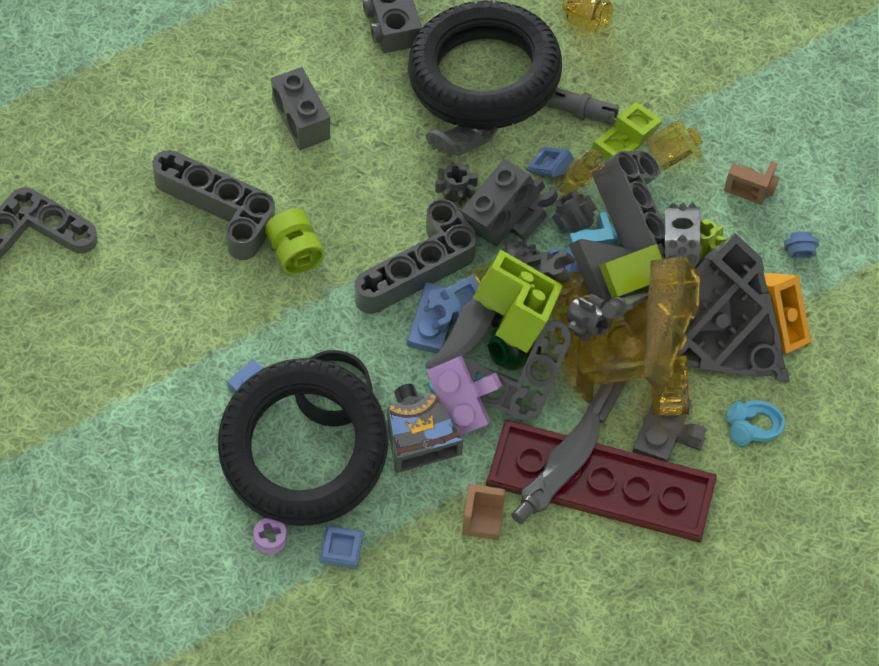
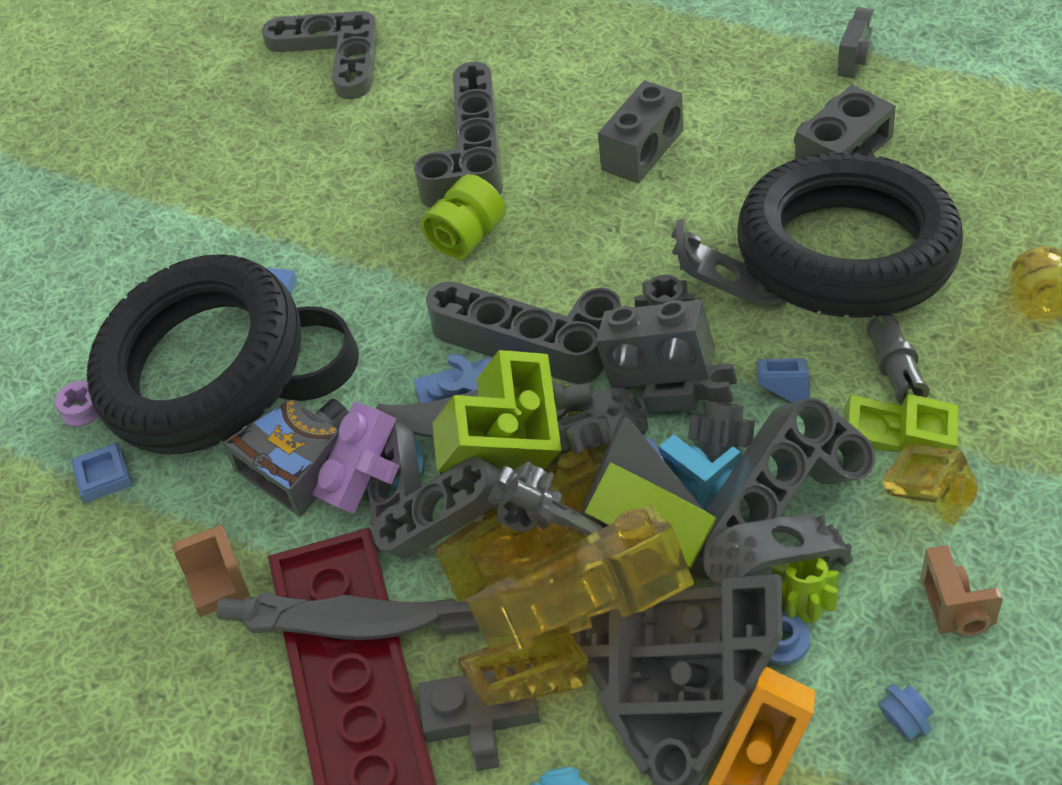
camera: 70 degrees right, 10 degrees down
(580, 172) = (772, 389): clear yellow pin -> none

